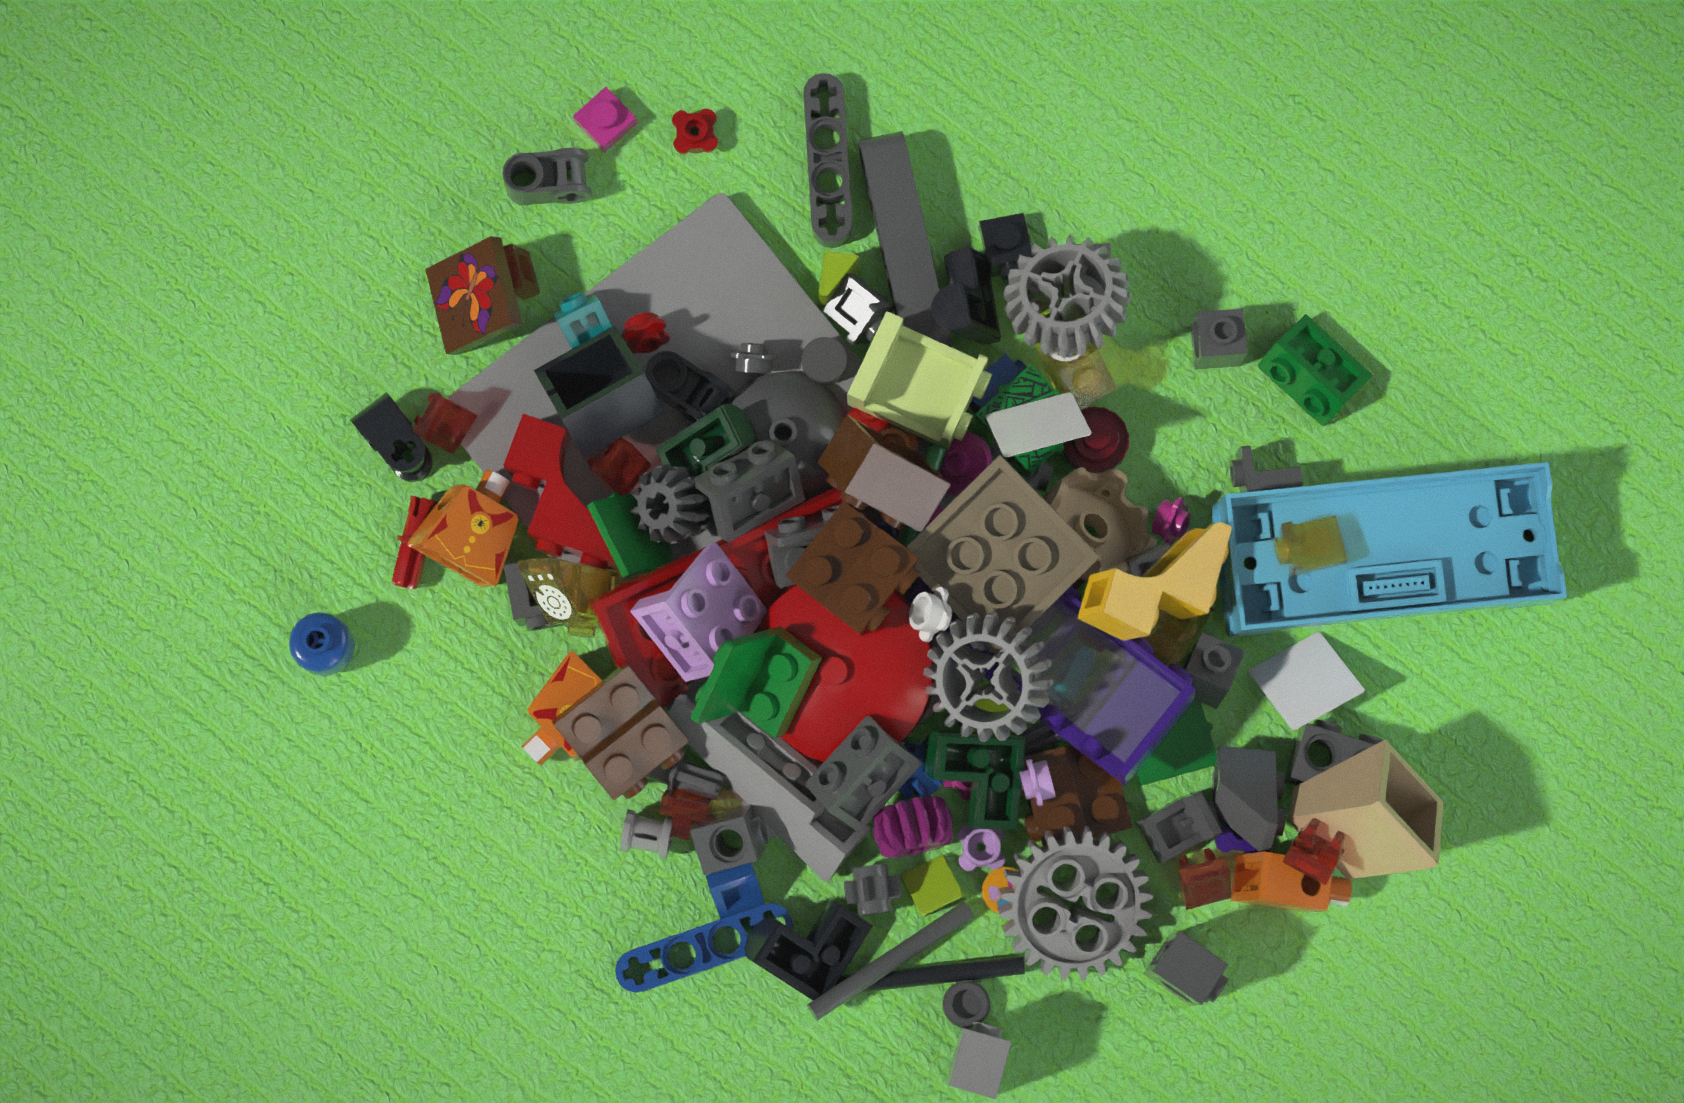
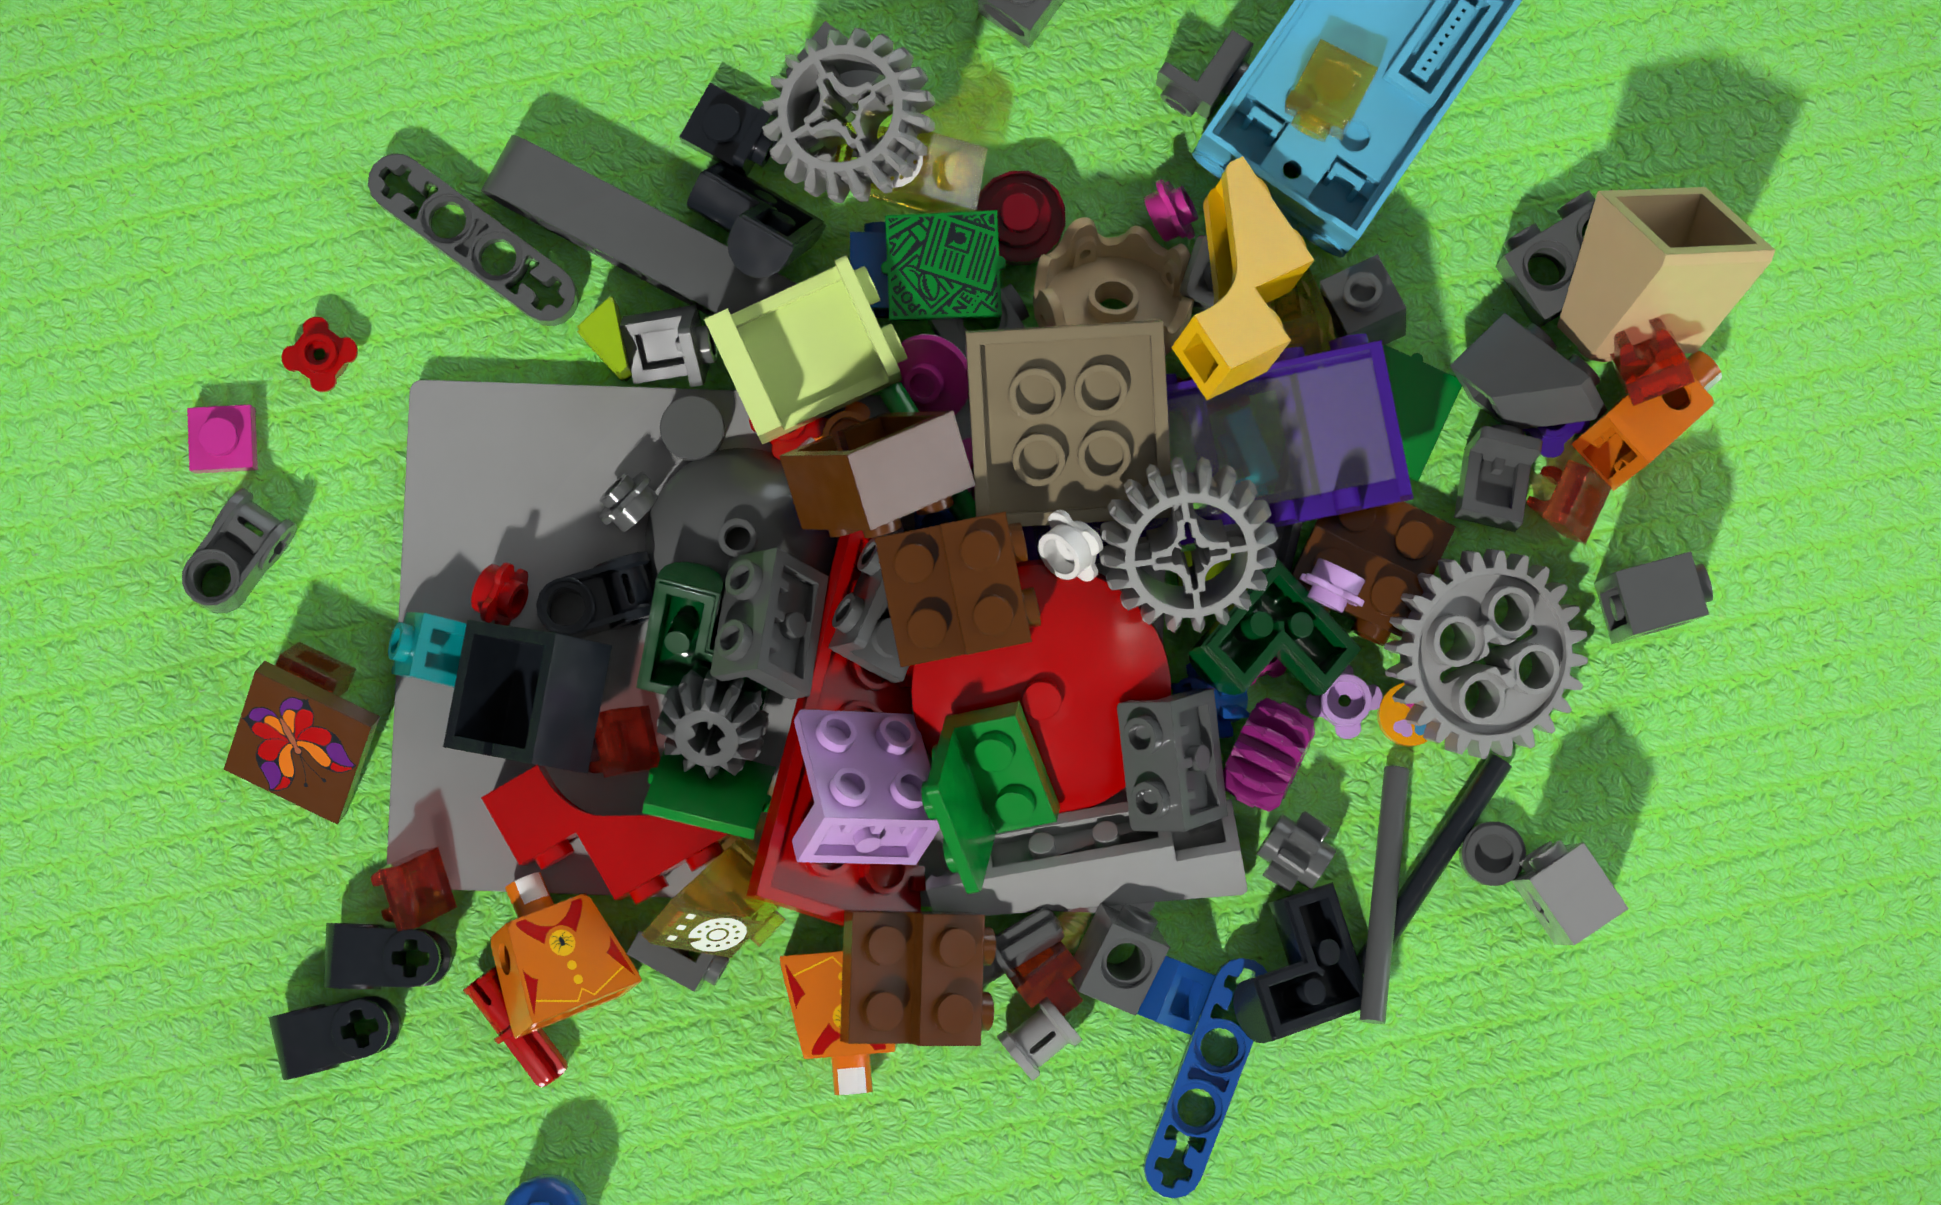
camera: 45 degrees left, 5 degrees up
(325, 444) = (326, 1036): none -> black piece
(932, 886) = (1342, 786): lime slope -> none
(1038, 424) = (962, 264): white sticker -> none
(1306, 681) = (1456, 217): white sticker -> none

